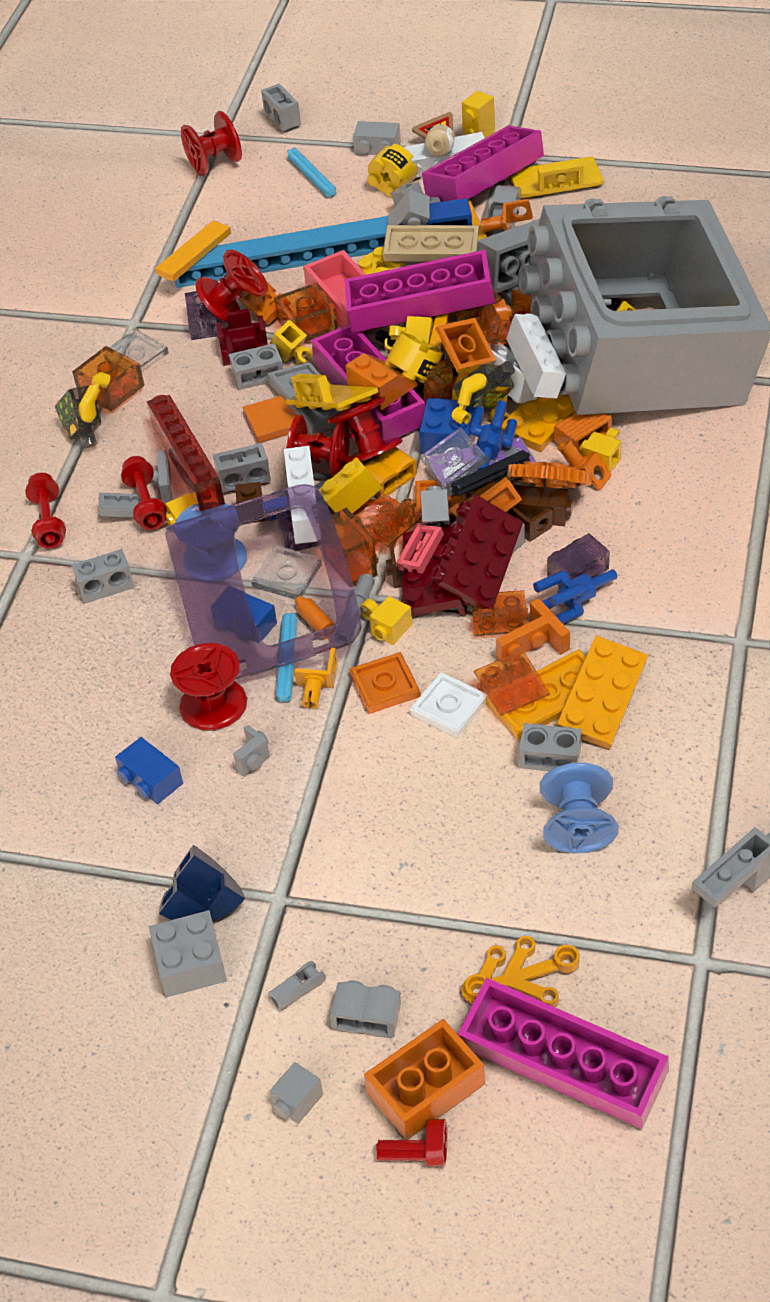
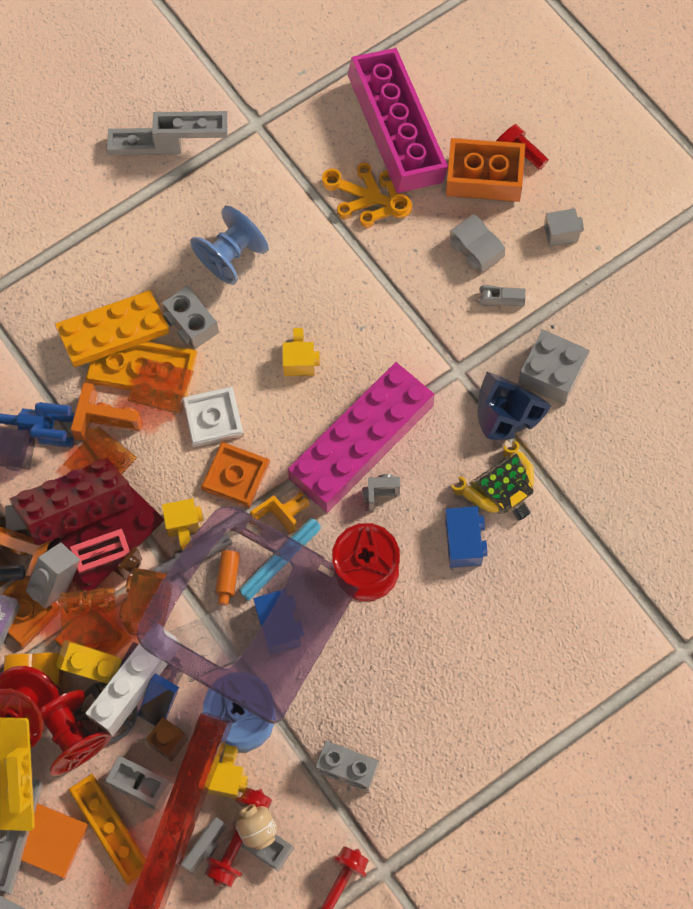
camera: 140 degrees left, 20 degrees up
(130, 491) = (256, 827): none -> tan head
(147, 826) = (502, 485): none -> torso
(216, 443) = (109, 828): none -> light orange tile
(305, 775) = (361, 437): none -> dark pink brick
(425, 790) = (299, 356): none -> yellow brick

